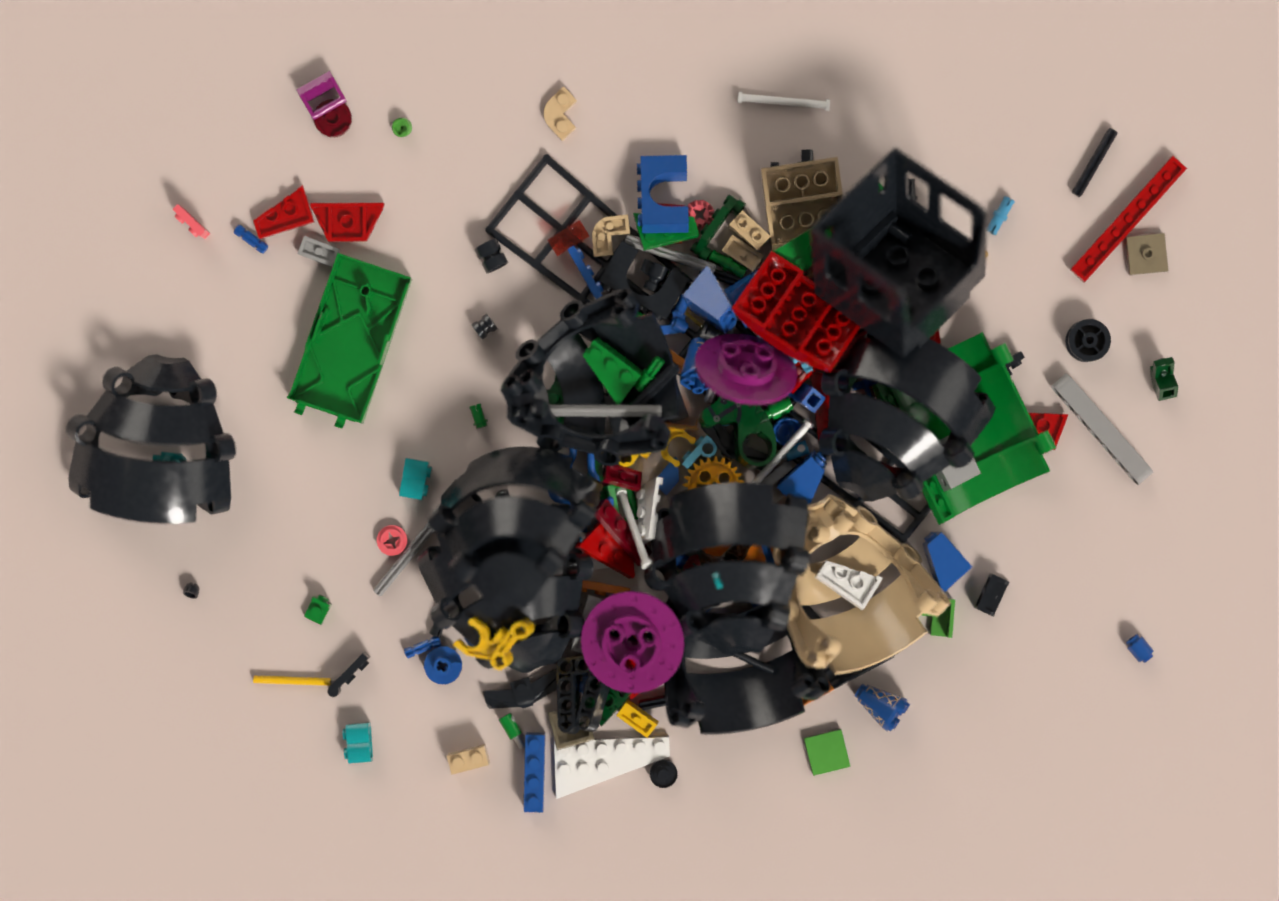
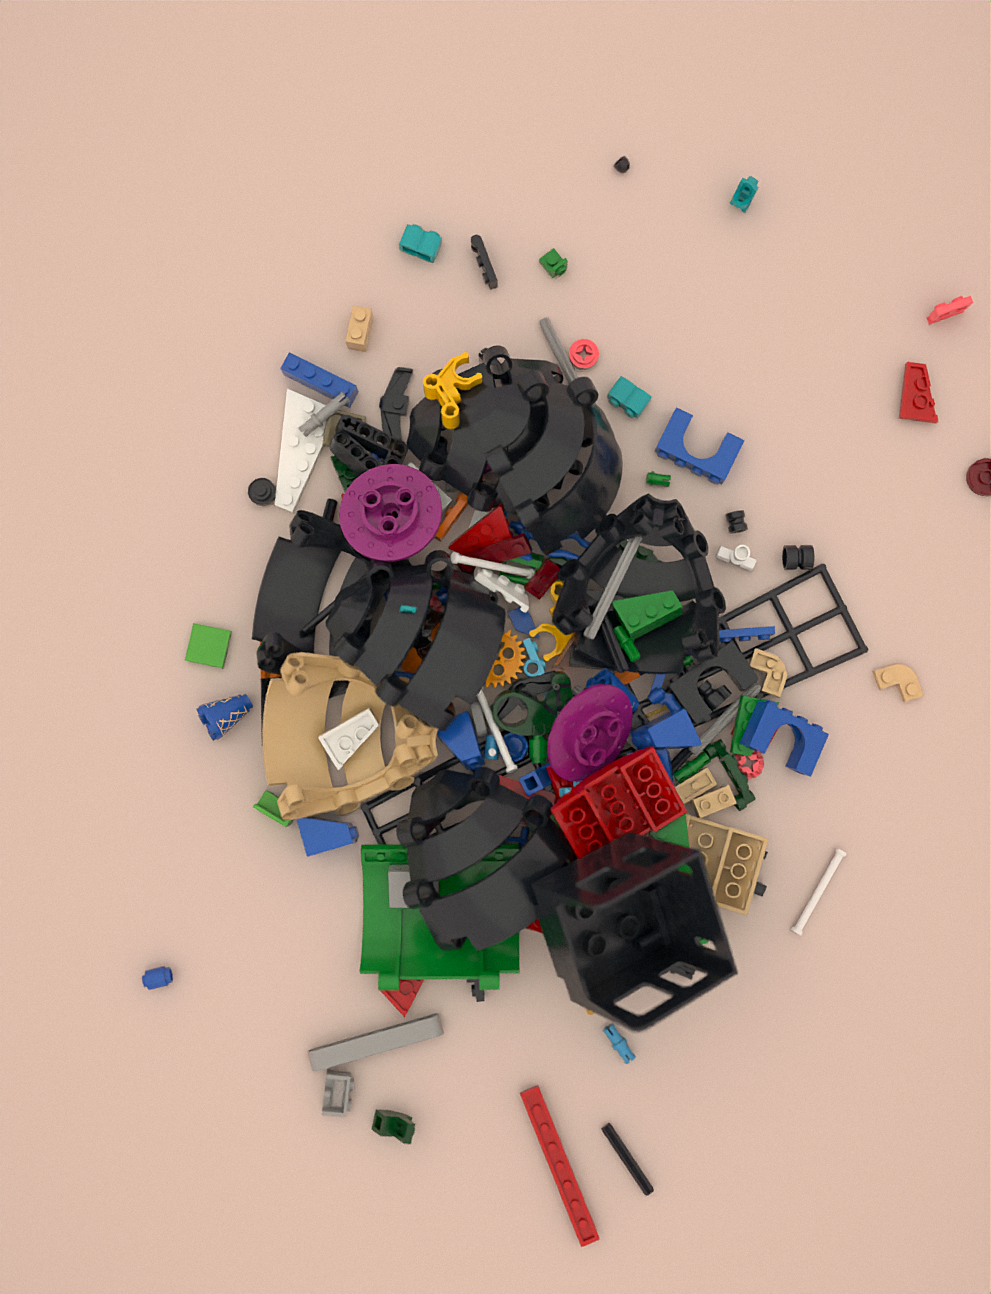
camera: 115 degrees right, 5 degrees down
(149, 488) = (728, 163): black piece -> none
(251, 239) = (909, 355): blue axle -> none
(292, 680) = (503, 212): yellow bar -> none
(318, 251) = (870, 409): light grey plate -> none
(347, 220) = (887, 447): red wing -> none
(349, 339) = (780, 398): green piece -> none
(401, 127) = (950, 533): bright green tile -> none
(422, 647) = (477, 336): blue axle -> none
(442, 368) = (714, 468): none -> blue arch
(443, 665) = (451, 343): blue piece -> none
(512, 729) = (367, 379): green piece -> none
(517, 311) = (739, 556): none -> white bar
(568, 237) = (783, 637): clear red plate -> none
(574, 754) = (326, 412): none -> light grey pin
(637, 718) = (321, 492): yellow plate -> none
(991, 594) = (274, 863): black hinge -> none
(1099, 340) = (459, 1081): black wheel -> none
(1146, 254) = (518, 1166): dark tan plate -> none
(1161, 441) = (336, 1093): none -> light grey window

